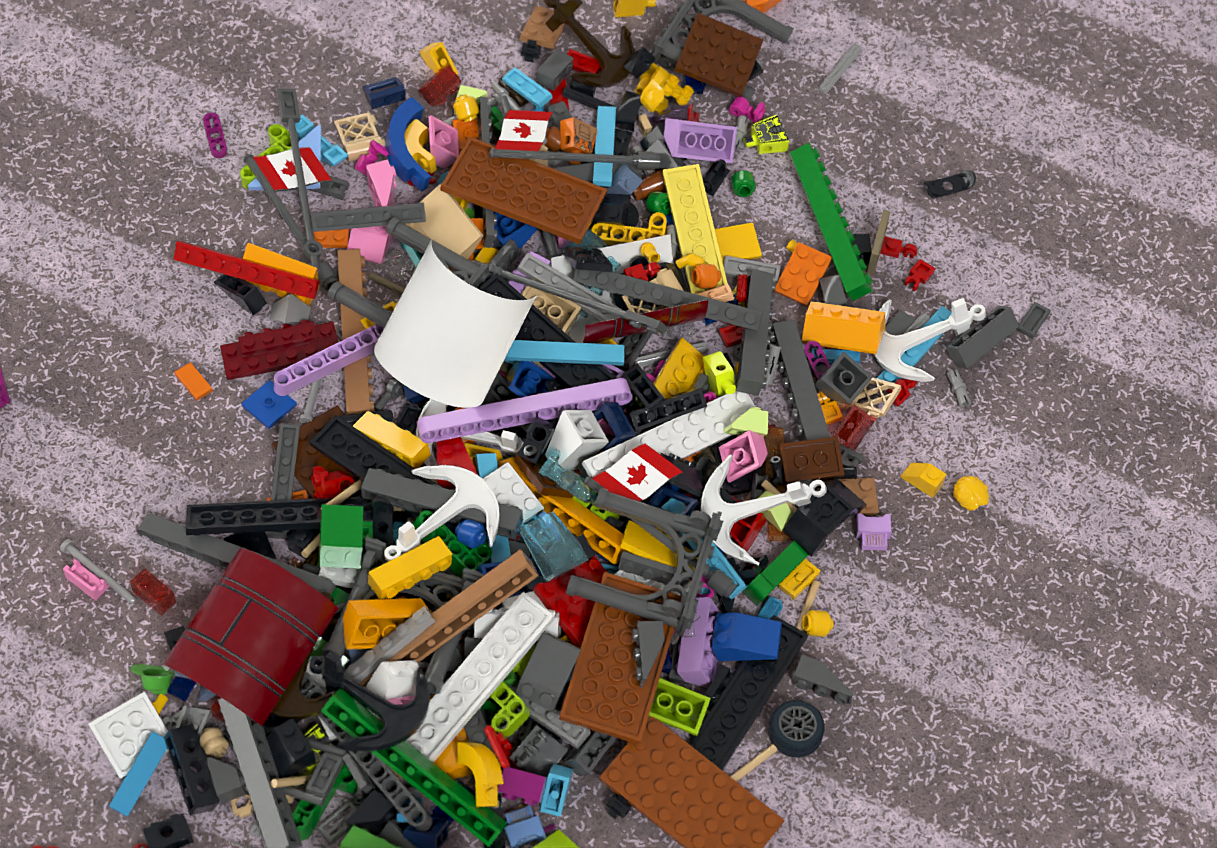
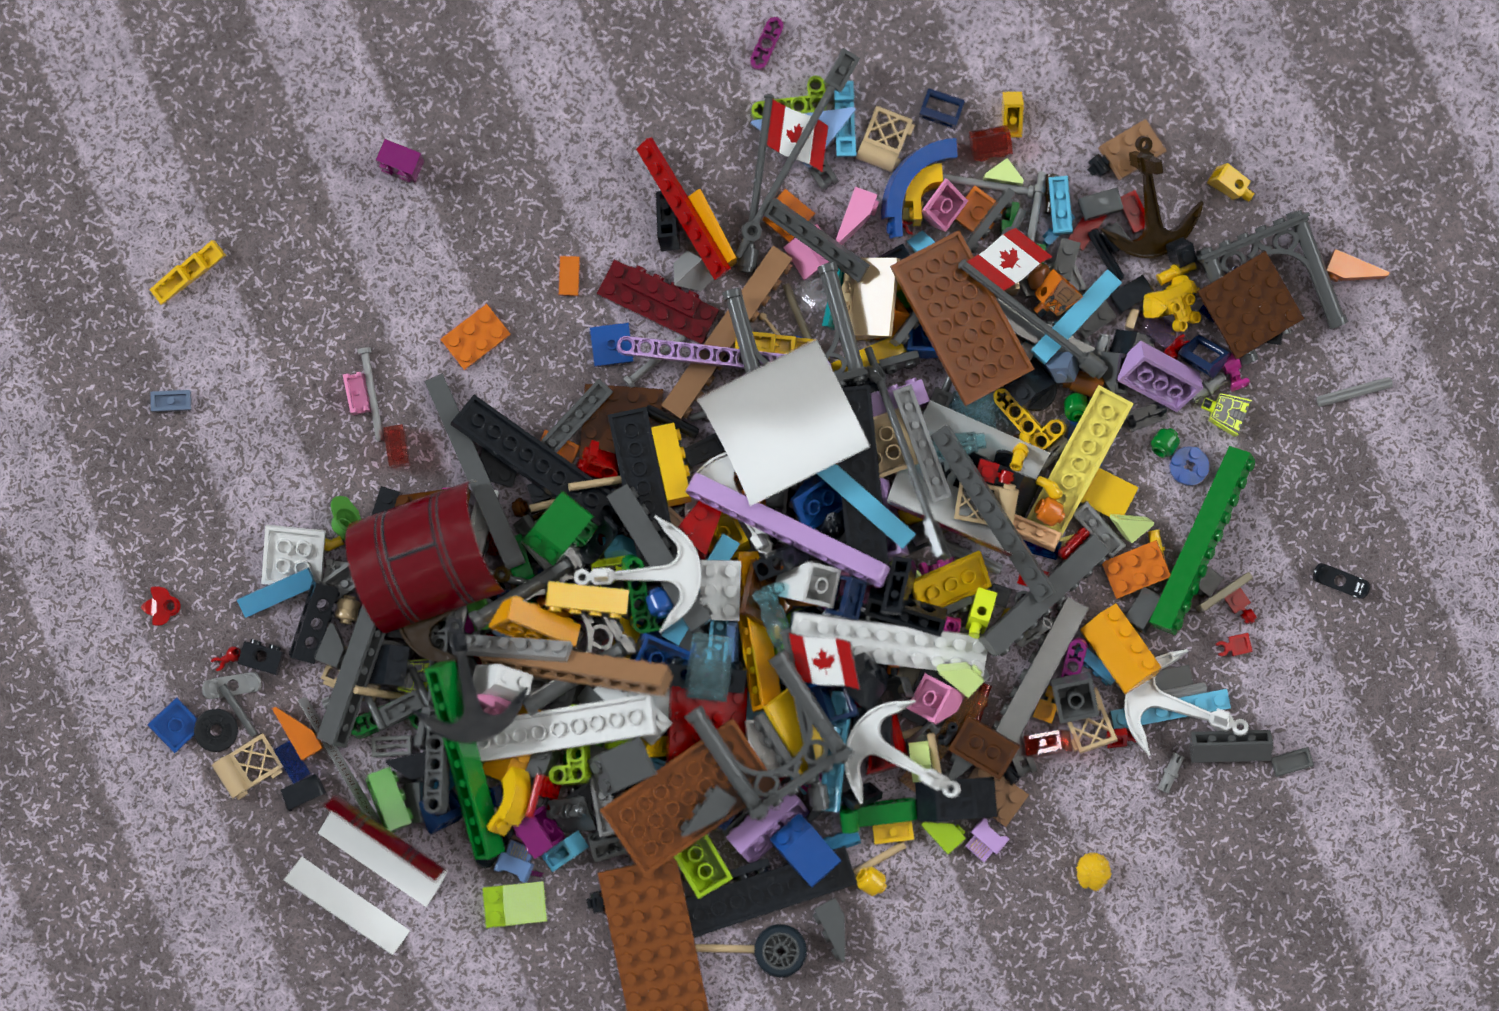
camera: 40 degrees right, 25 degrees up
(152, 473) = (475, 337): none -> orange plate
(364, 160) = (866, 174): dark pink leg -> none
(466, 108) = (989, 188): yellow head -> none
(588, 259) = (956, 429): black plate -> none
(720, 116) = (1209, 369): none -> dark blue tile
(770, 180) = (1183, 475): none -> blue plate
(772, 250) = (1131, 526): none -> yellowish green slope
(838, 550) = (945, 834): none -> lime slope
(924, 477) = (1067, 826): yellow slope -> none

